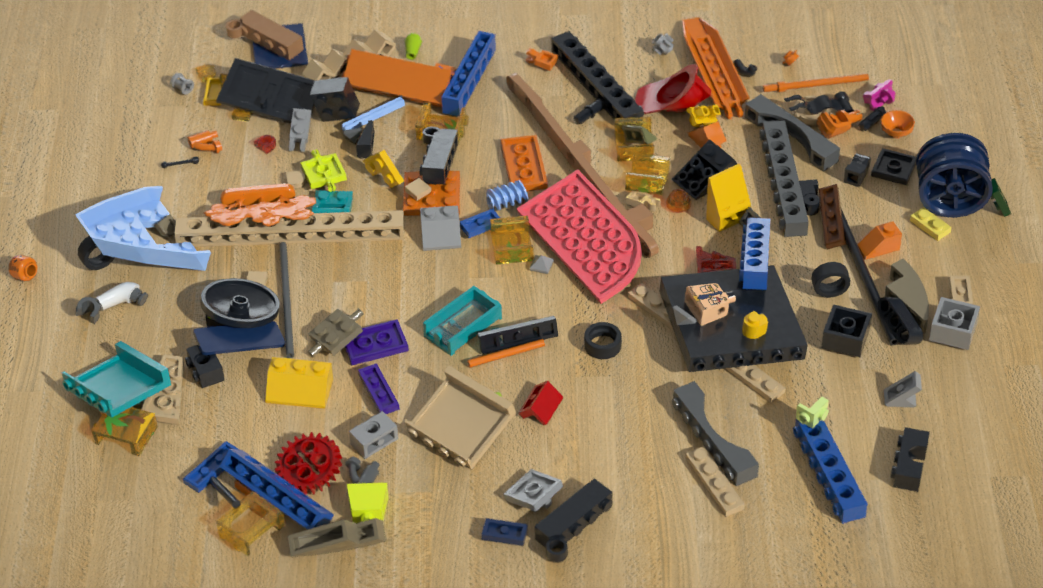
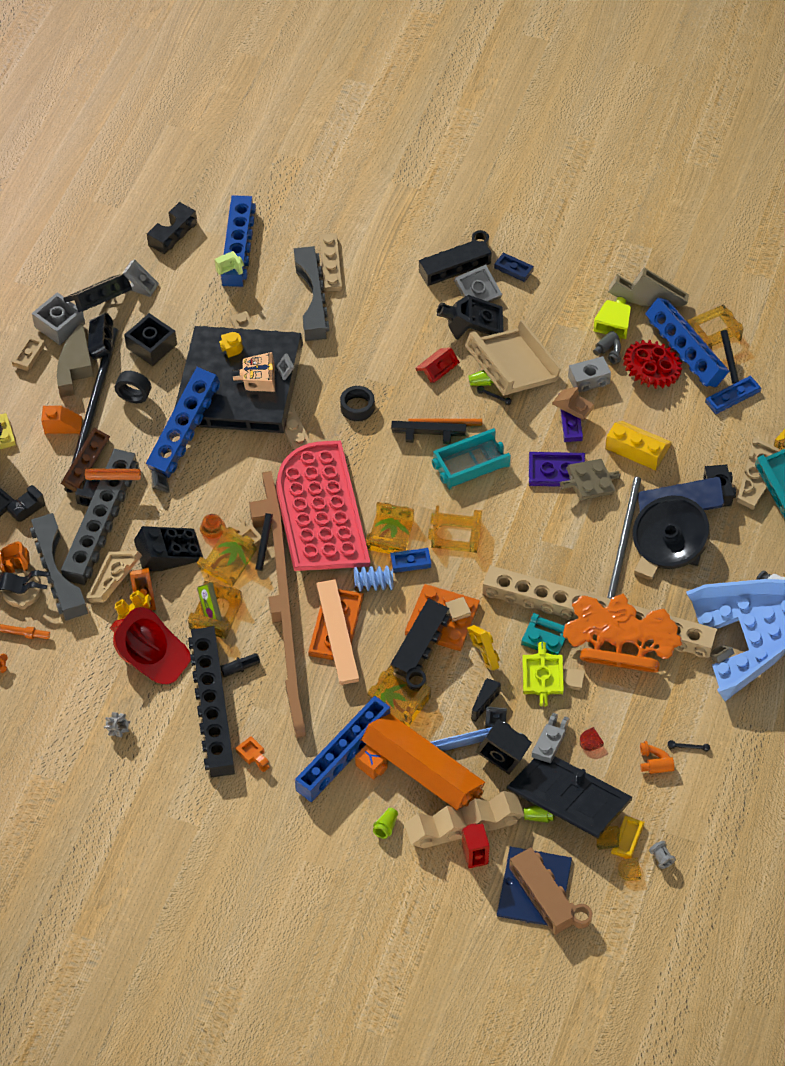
camera: 160 degrees left, 10 degrees up
(332, 37) = (475, 845): none -> red brick
(381, 392) = (572, 403): none -> medium nougat slope
(440, 228) = (451, 567): light grey slope -> none
(463, 249) = (442, 519): none -> clear yellow panel
(518, 150) = (337, 632): none -> light nougat tile
(521, 451) = (473, 314): none -> black plate
(541, 264) = (370, 502): light grey slope -> none
(621, 193) = (263, 542): none -> black bar
(713, 262) = (219, 447): clear red wing -> none
(715, 65) = (79, 685): orange hinge -> none
(727, 198) = (174, 492): yellow slope -> none
(741, 137) = (111, 574): none -> tan wing
(743, 70) = (52, 668): black arm -> none
(791, 195) = (112, 474): none -> orange axle
(929, 349) = (99, 292): none -> black fence

